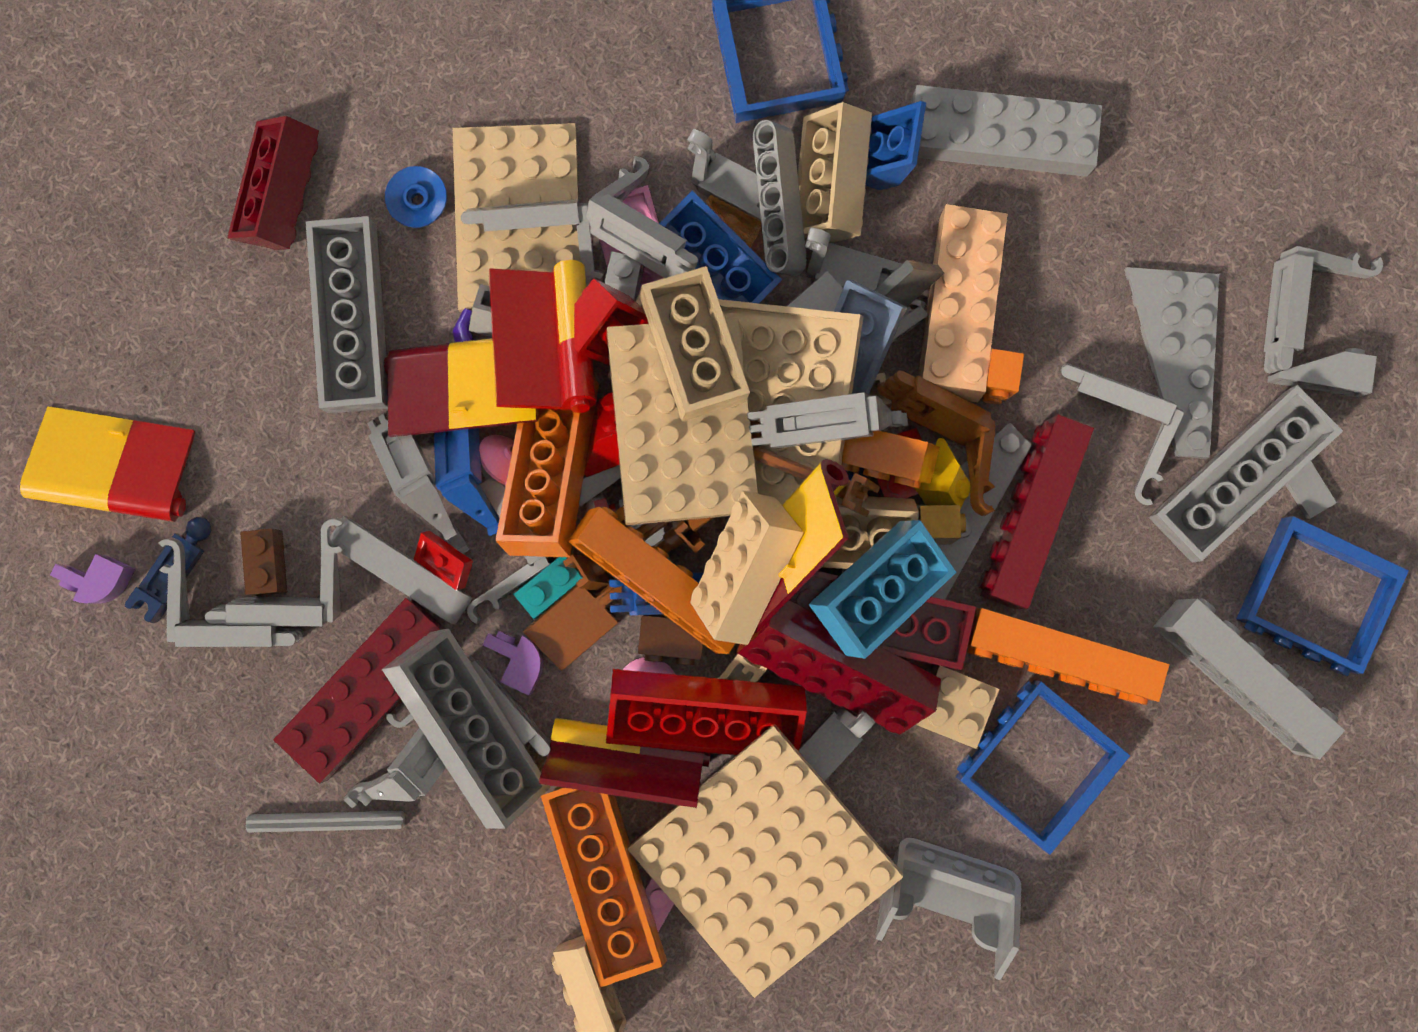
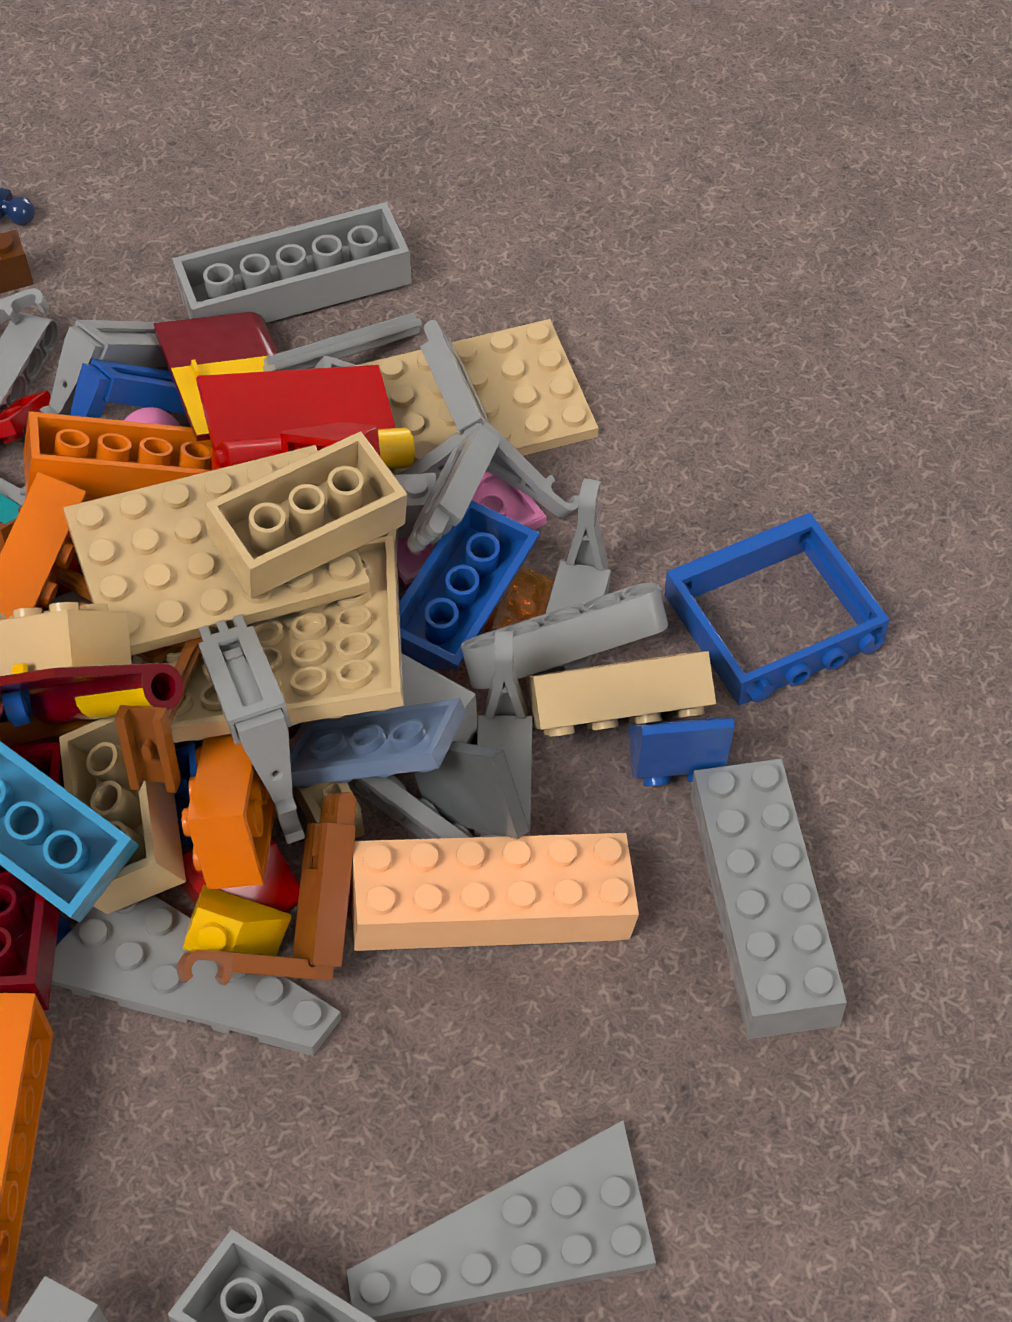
camera: 80 degrees right, 30 degrees down
(108, 464) = (78, 128): door -> none
(274, 183) = (430, 185): dark red slope -> none
(408, 184) = (455, 302): blue dish -> none
(447, 293) = (345, 344): none -> light grey axle
(943, 522) = (151, 916): pearl gold brick -> none
(1003, 376) = (395, 963): orange brick -> none
(1035, 512) = (201, 1060): dark red brick -> none
(1136, 401) = (408, 1173): light grey hinge -> none

